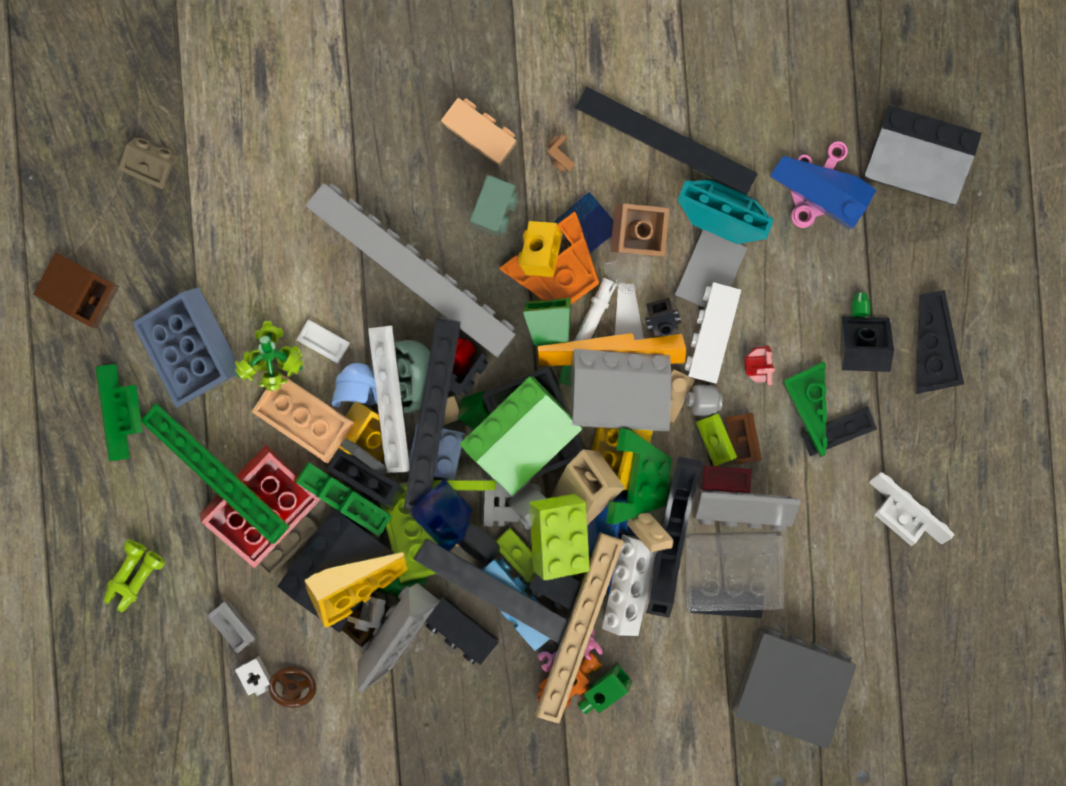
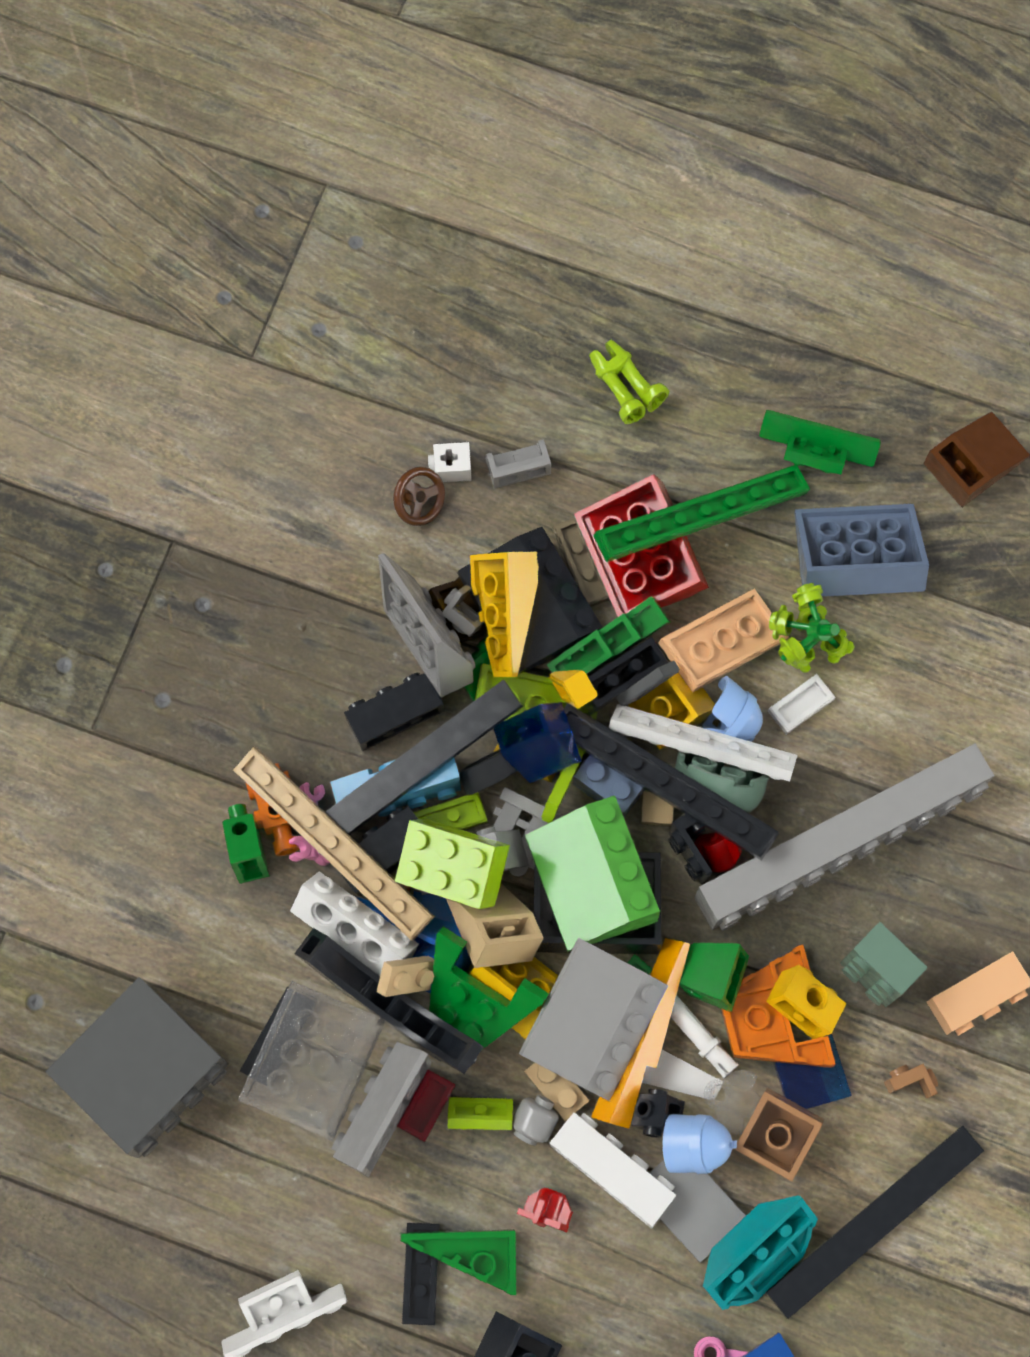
camera: 115 degrees right, 15 degrees down
(392, 508) = (573, 687): none -> yellow slope
(473, 410) = (647, 836): green panel -> none
(673, 284) = (695, 1144): none -> light blue helmet
(743, 438) = (466, 1148): reddish brown hinge -> none

